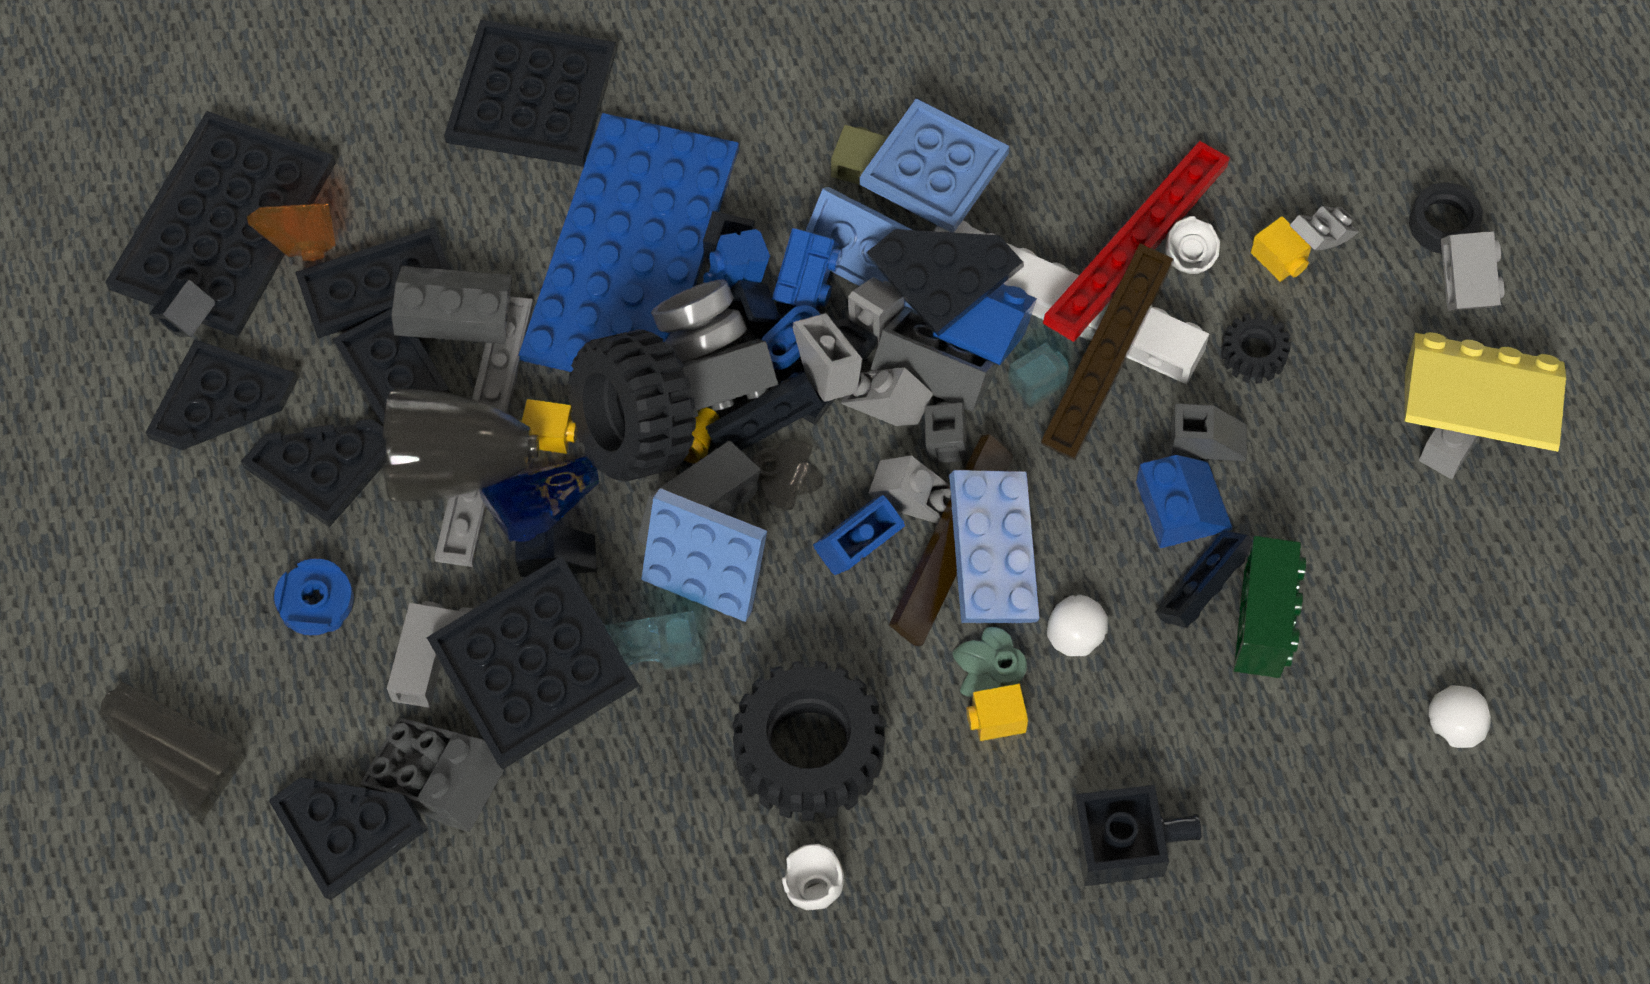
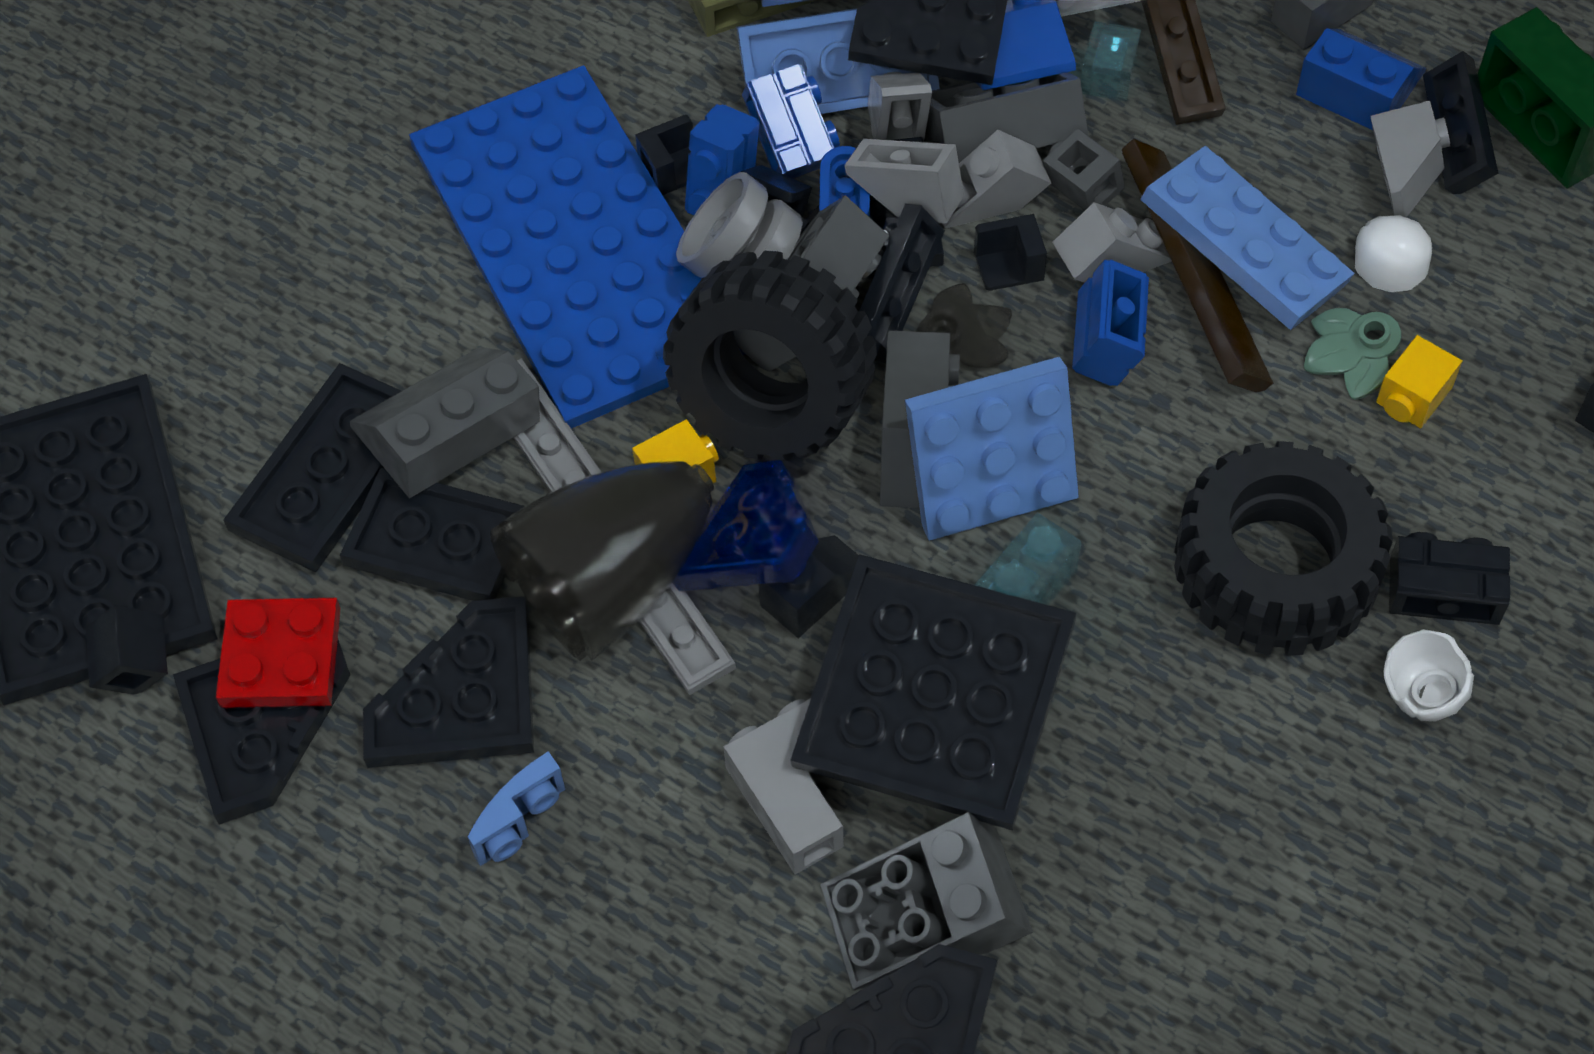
camera: 40 degrees left, 5 degrees down
(251, 369) = (278, 652): none -> red plate
(275, 550) = (501, 824): none -> medium blue slope
(296, 229) = (186, 470): clear orange slope -> none
(300, 582) = (593, 866): blue plate -> none
(531, 92) = (308, 168): black plate -> none
(855, 448) = (1010, 252): none -> black panel
(889, 835) = (1449, 579): none -> black brick
(1146, 574) = (1409, 152): none -> light grey slope

